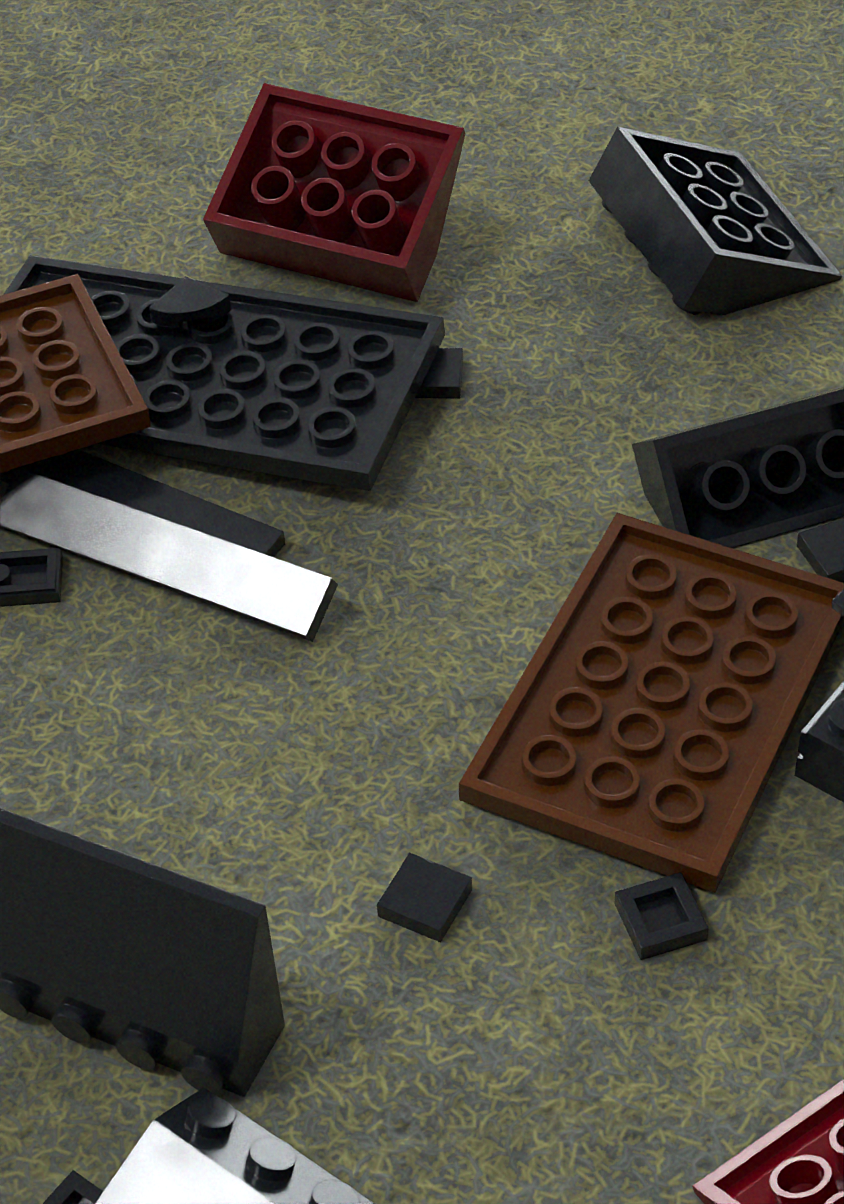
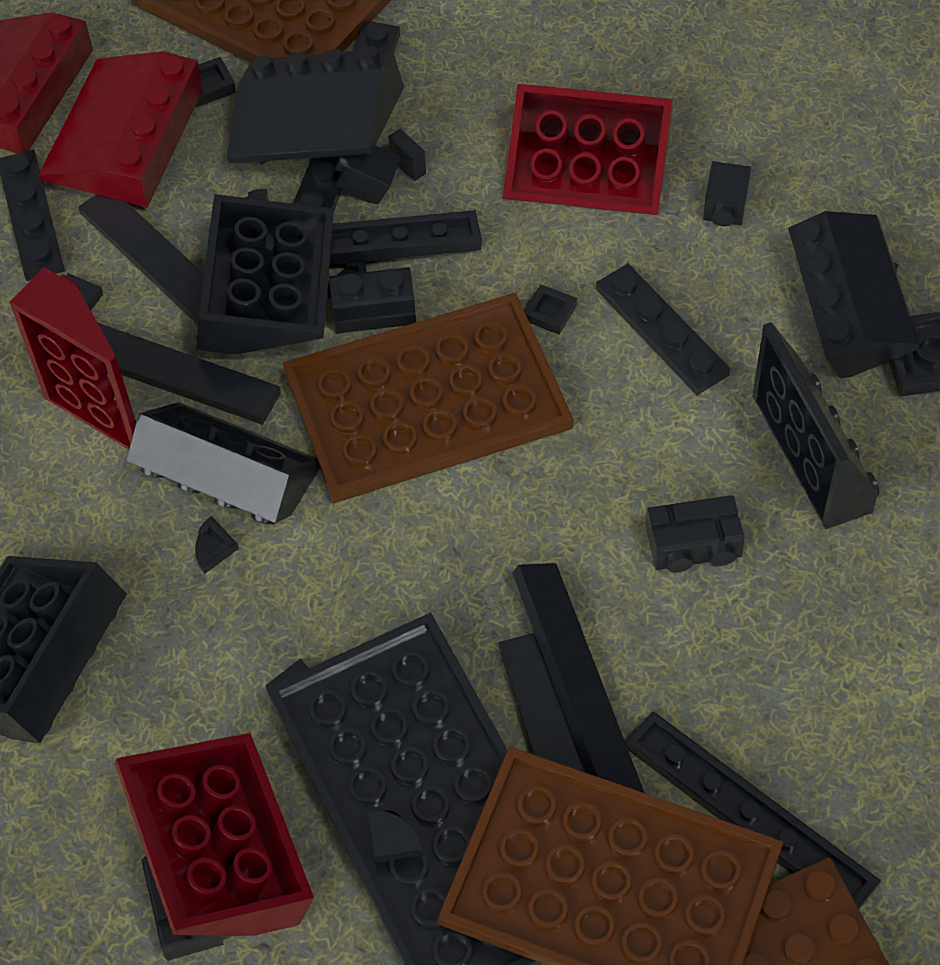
camera: 135 degrees left, 10 degrees up
(180, 776) = (695, 533): none -> black brick
(424, 897) = (638, 395): black tile -> none
(494, 1011) = (663, 329): none -> black plate
(674, 412) = (213, 545): none -> black tile

